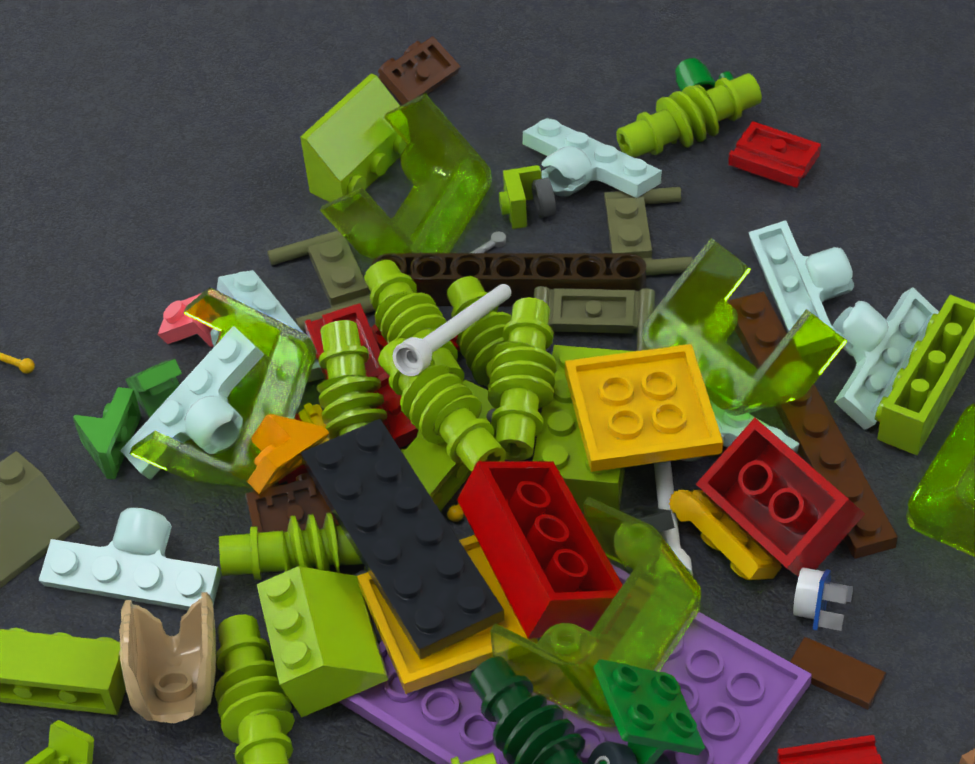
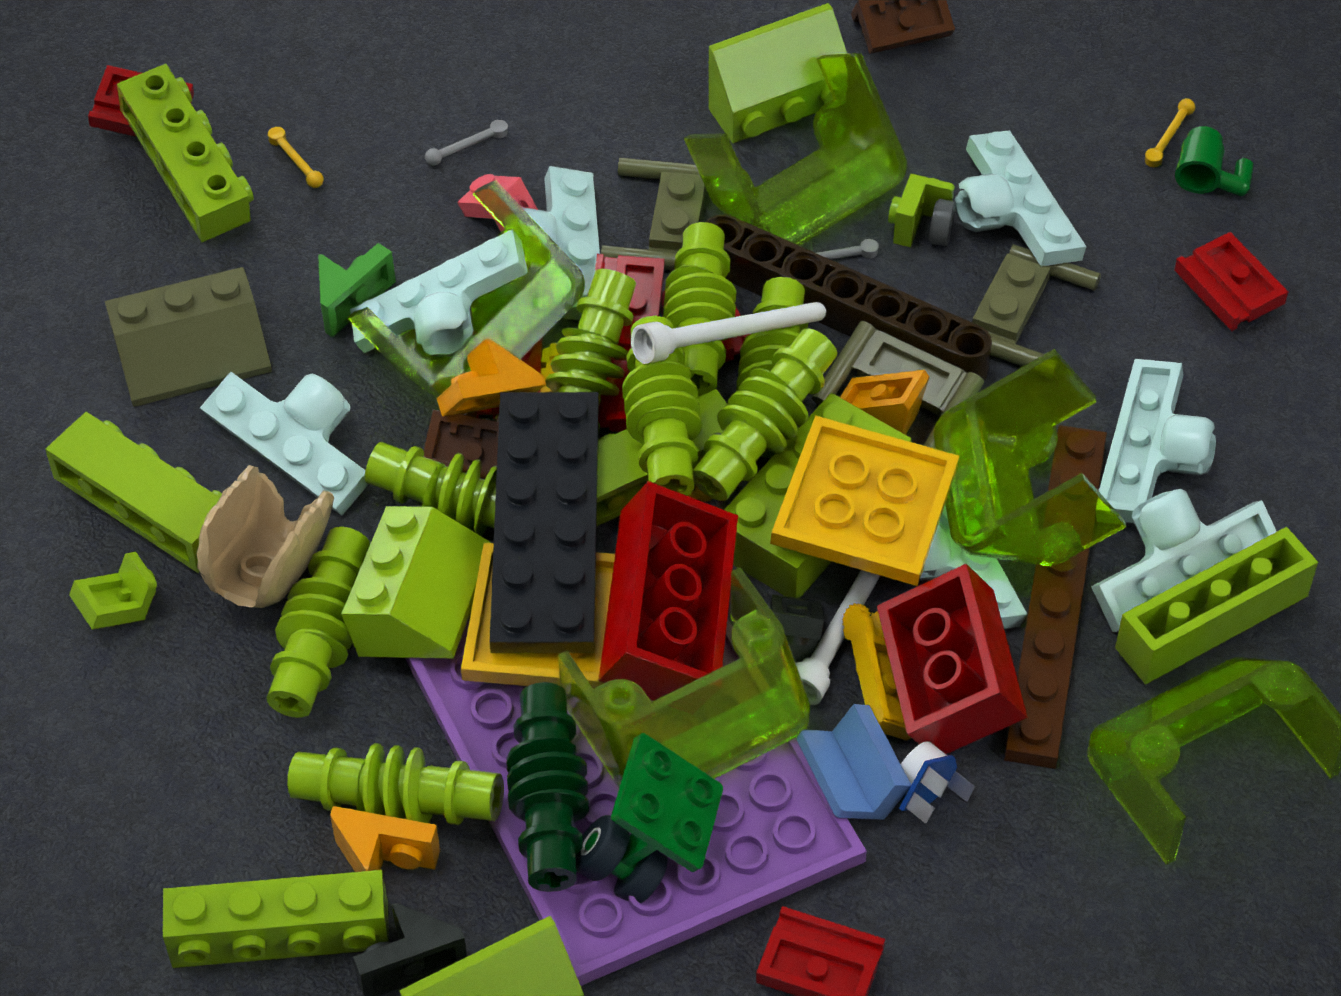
camera: 25 degrees right, 5 degrees up
(154, 270) = (497, 129): none -> light grey hinge
(155, 385) = (420, 254): bright green slope -> none
(596, 329) = (889, 397): none -> light orange slope
(658, 56) = (1154, 156): none -> yellow hinge
(689, 115) = (1161, 196): lime piece -> none
(759, 611) = (855, 766): none -> medium blue panel
(839, 672) = (902, 863): reddish brown piece -> none

